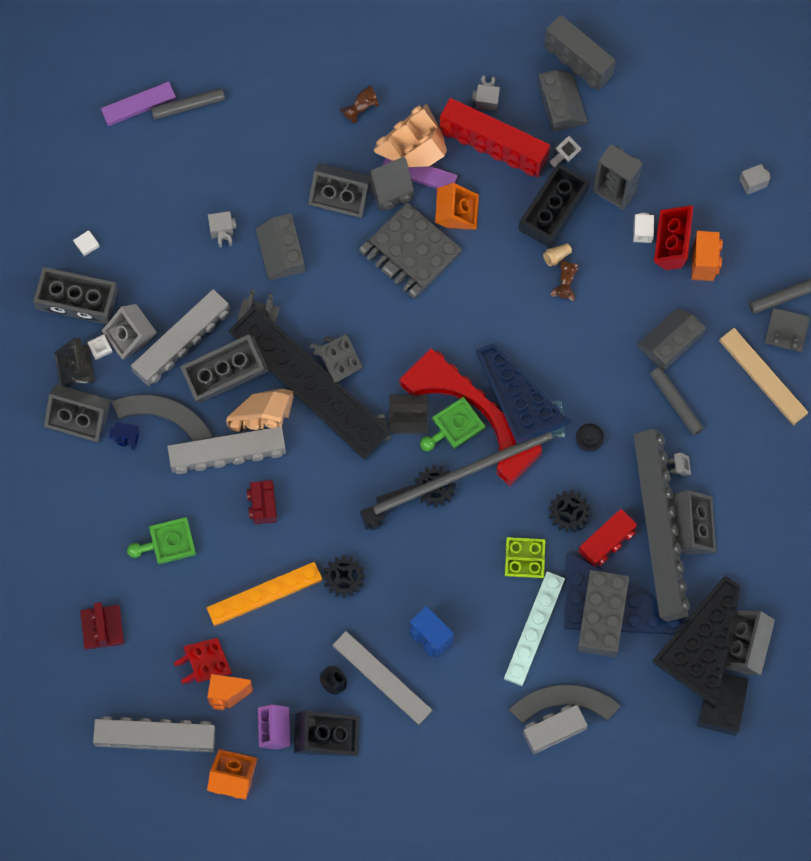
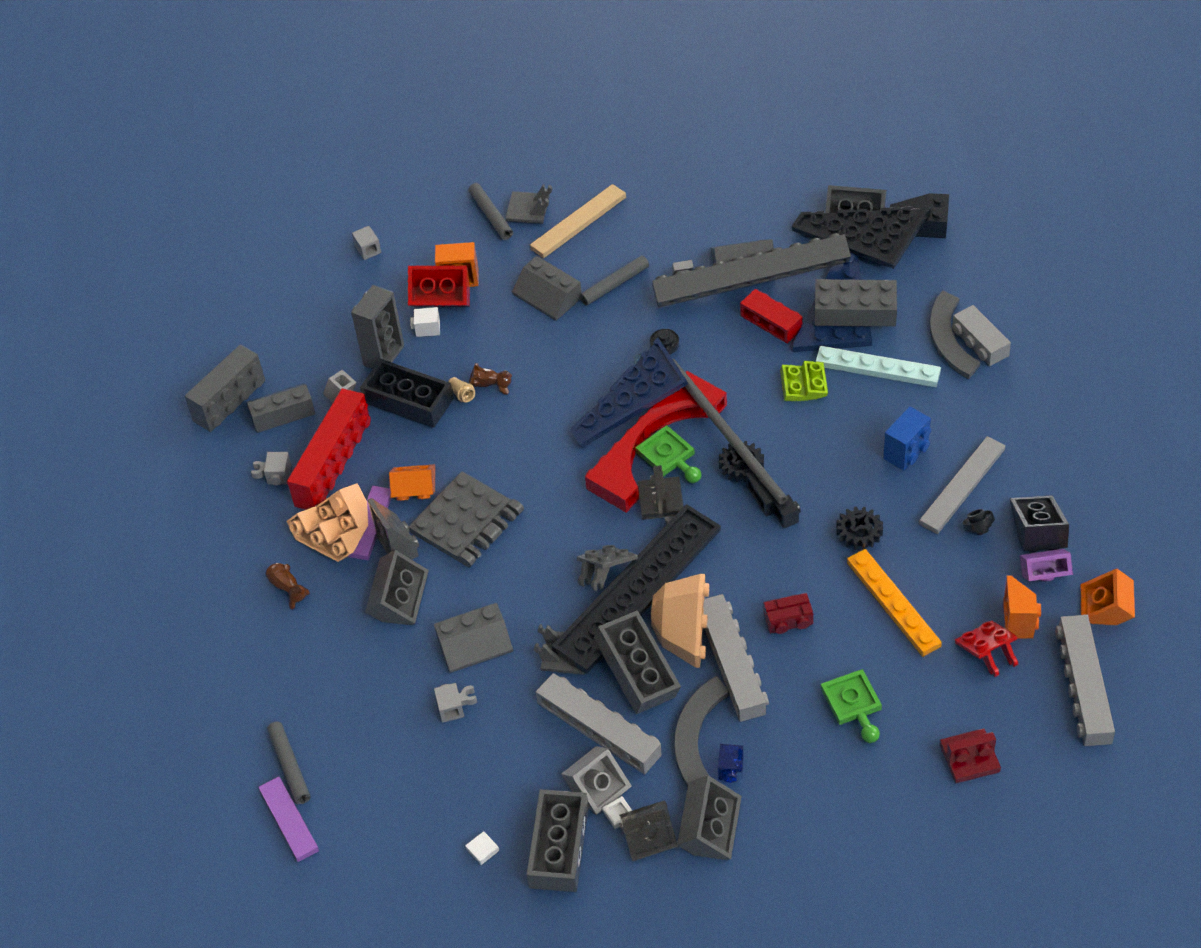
camera: 90 degrees left, 20 degrees down
(577, 509) = (748, 348): black gear -> none

